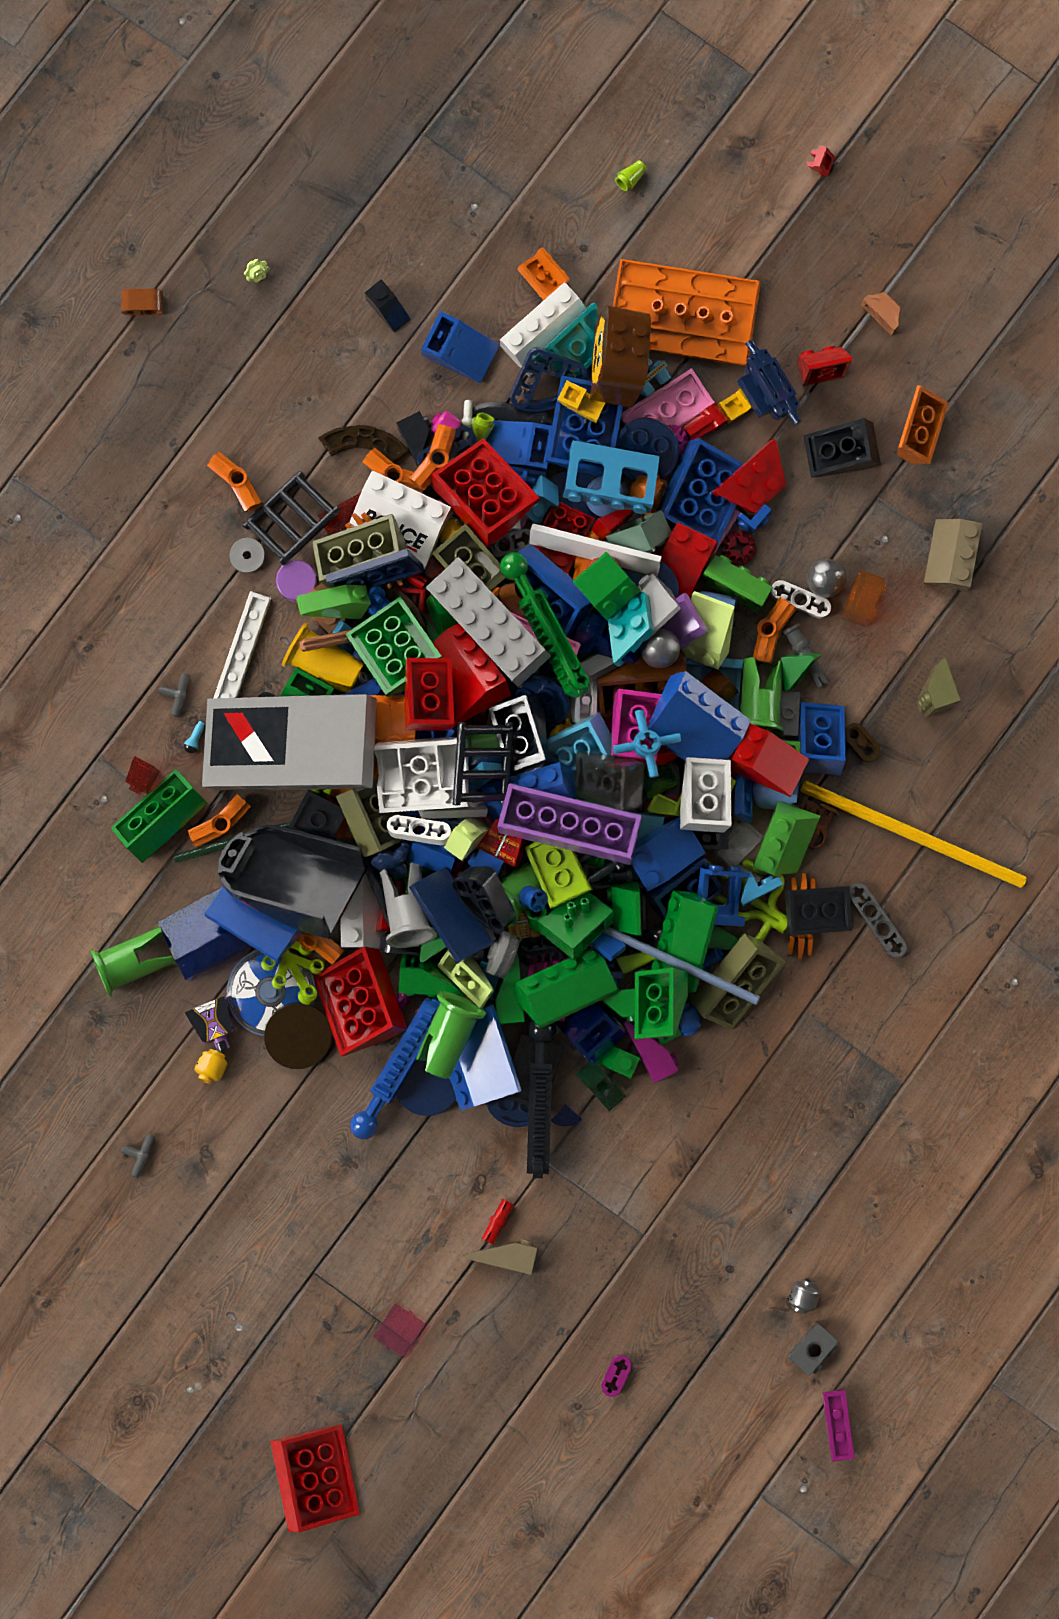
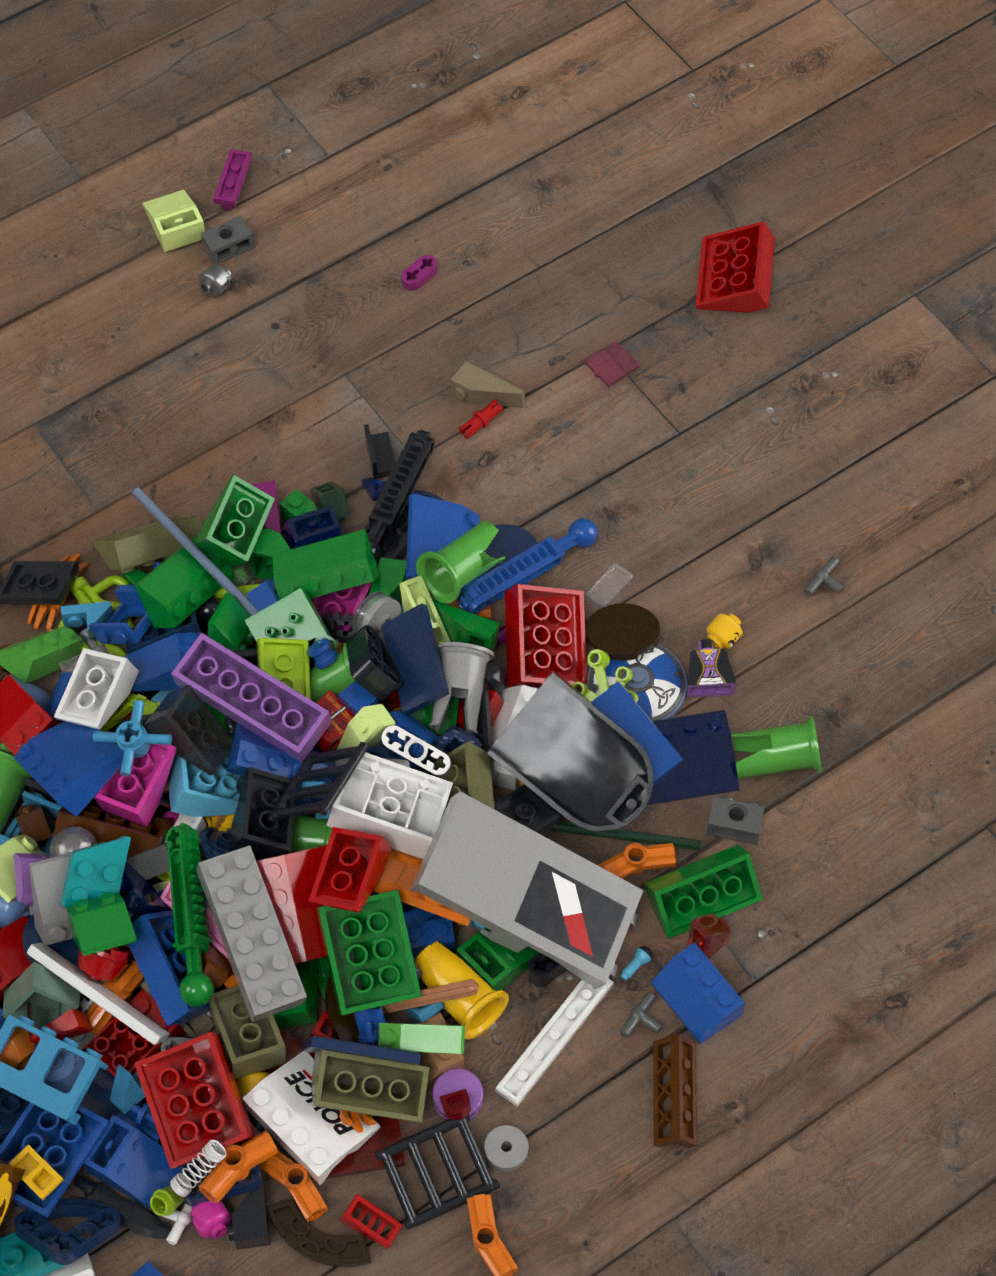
camera: 160 degrees left, 25 degrees down
(128, 641) = (680, 1088): none -> reddish brown fence
(137, 725) = (698, 993): none -> blue slope
(137, 888) = (724, 827): none -> dark grey brick
(291, 565) = (456, 1104): none -> dark red tile
(325, 1082) = (609, 586): none -> clear tile
(345, 472) = (368, 1207): none -> red slope
(468, 435) = (184, 1180): none -> white piece
(575, 1153) = (379, 453): none -> black panel
(876, 1358) = (175, 220): none -> yellowish green slope

